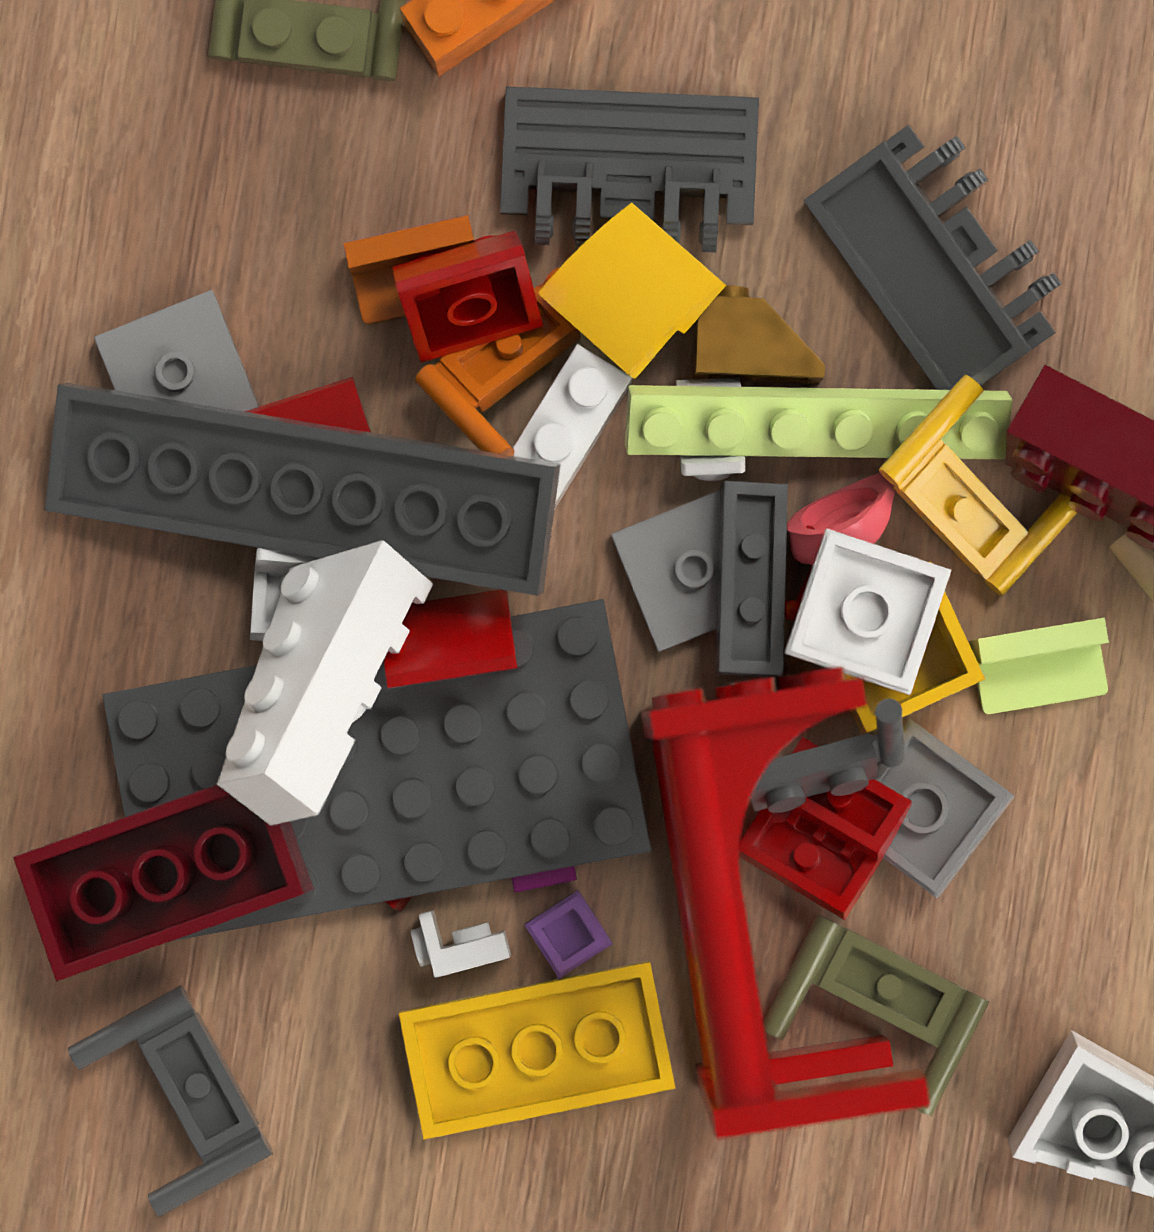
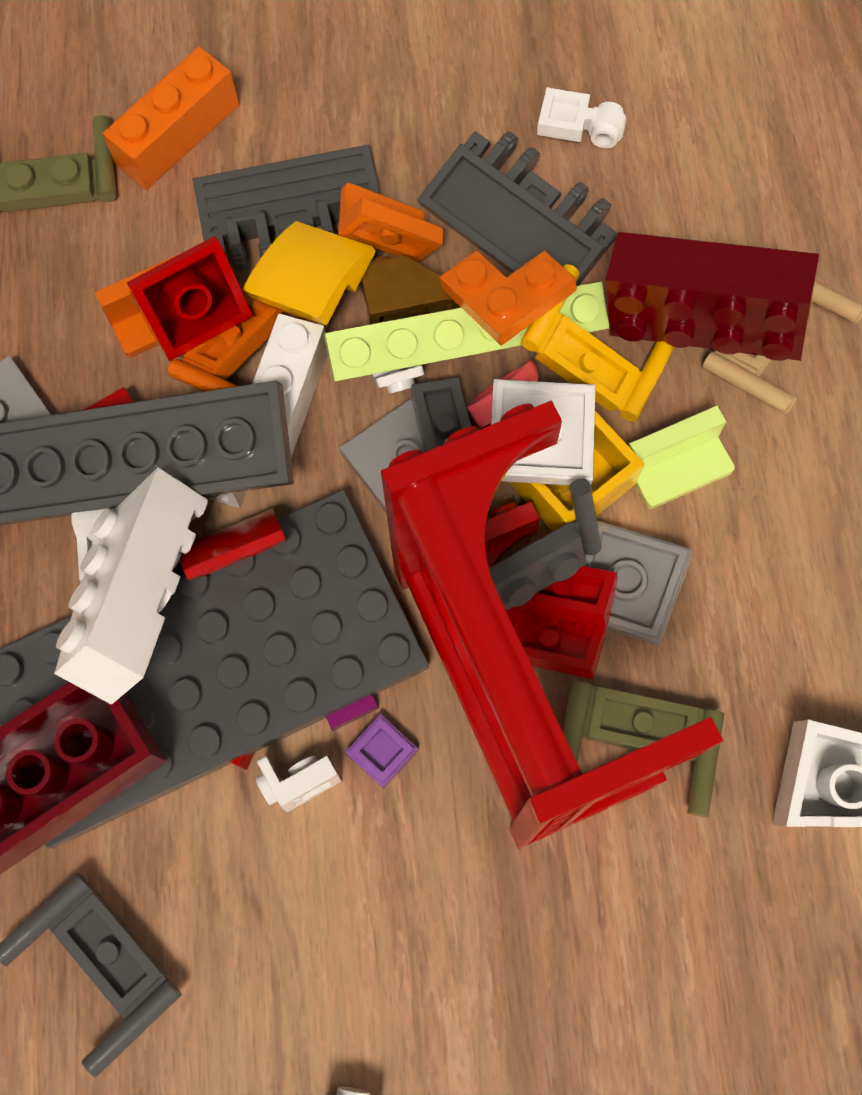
camera: 10 degrees left, 15 degrees down
(536, 1049) = (377, 849): yellow plate -> none
(751, 234) = (386, 224): none -> orange panel
(878, 417) = (510, 303): none -> orange plate
(1044, 124) = (568, 114): none -> white plate

